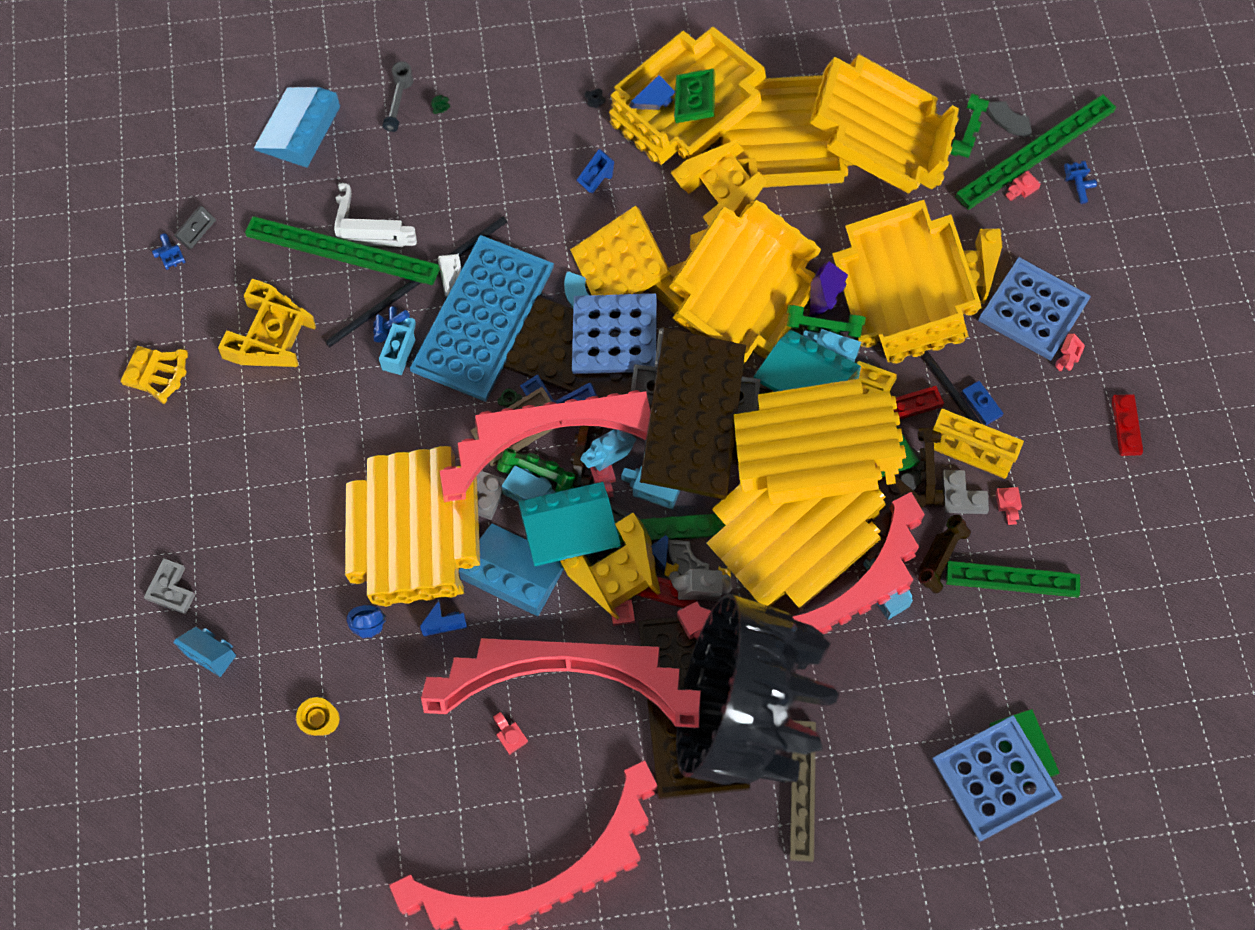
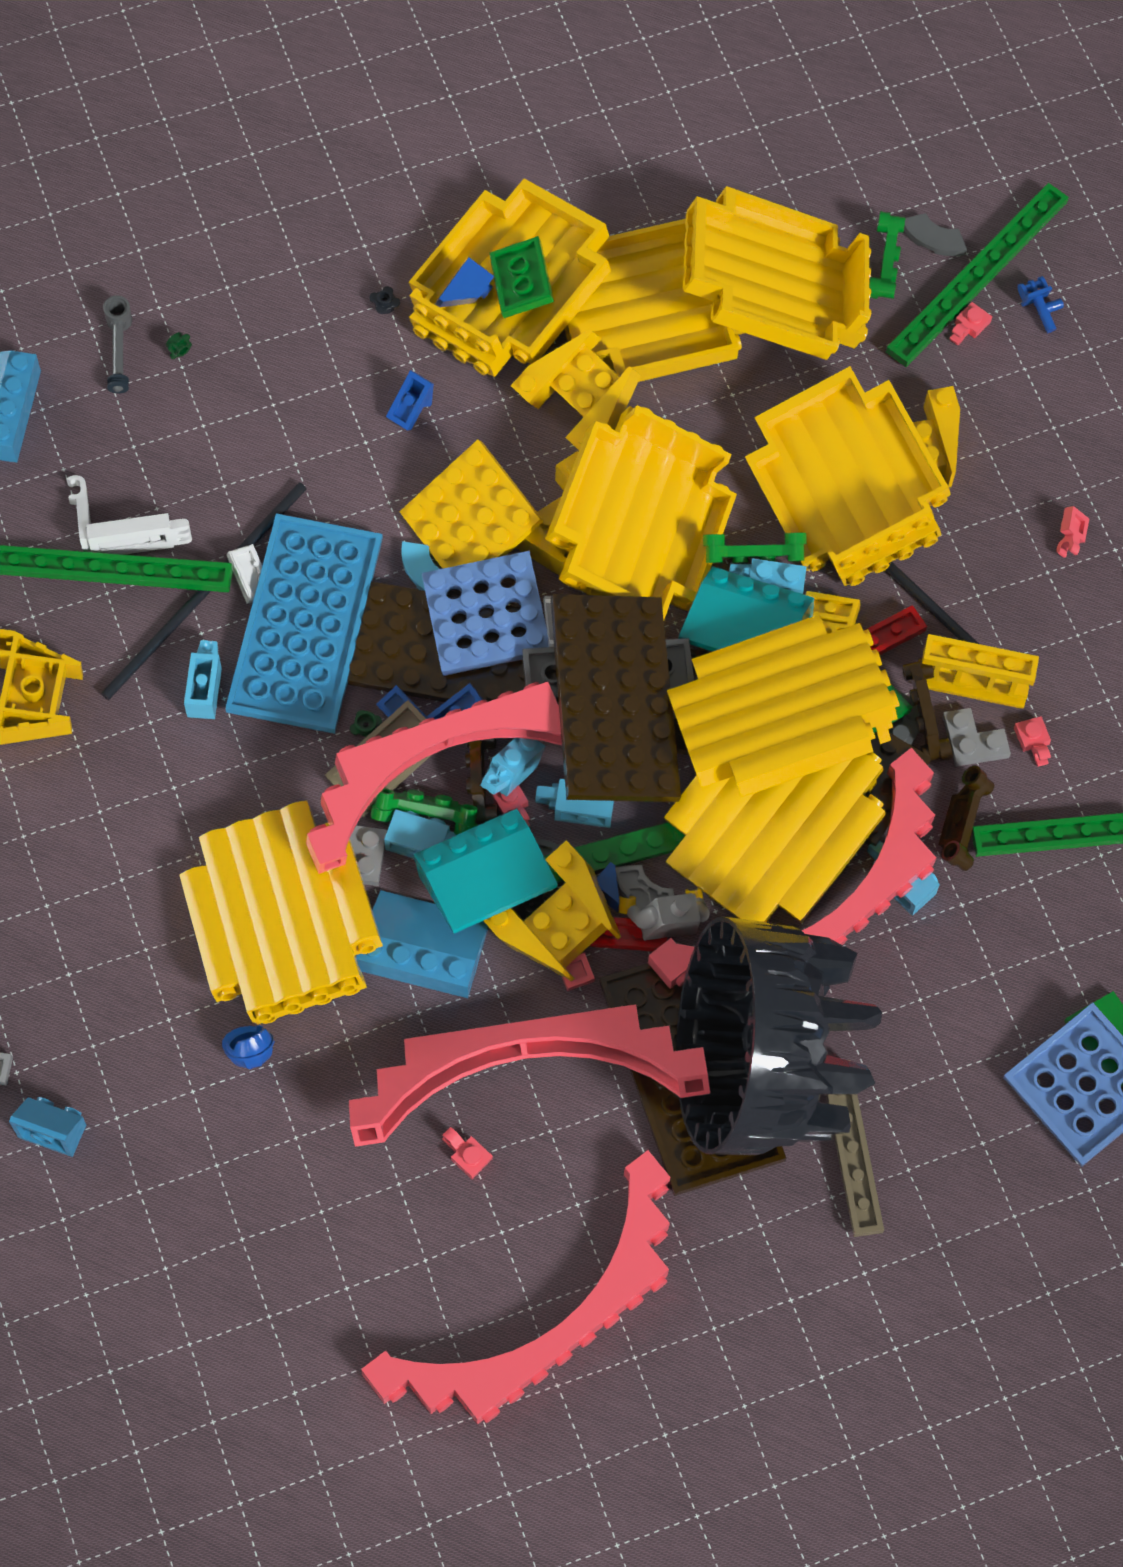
camera: 15 degrees left, 0 degrees up
(317, 717) = (216, 1180): yellow piece -> none
(382, 326) = (177, 660): blue arm -> none
(436, 623) = (342, 1032): blue slope -> none
(825, 287) = (746, 504): dark purple slope -> none
(982, 403) = (974, 617): blue plate -> none
(1029, 336) = (1024, 497): medium blue piece -> none

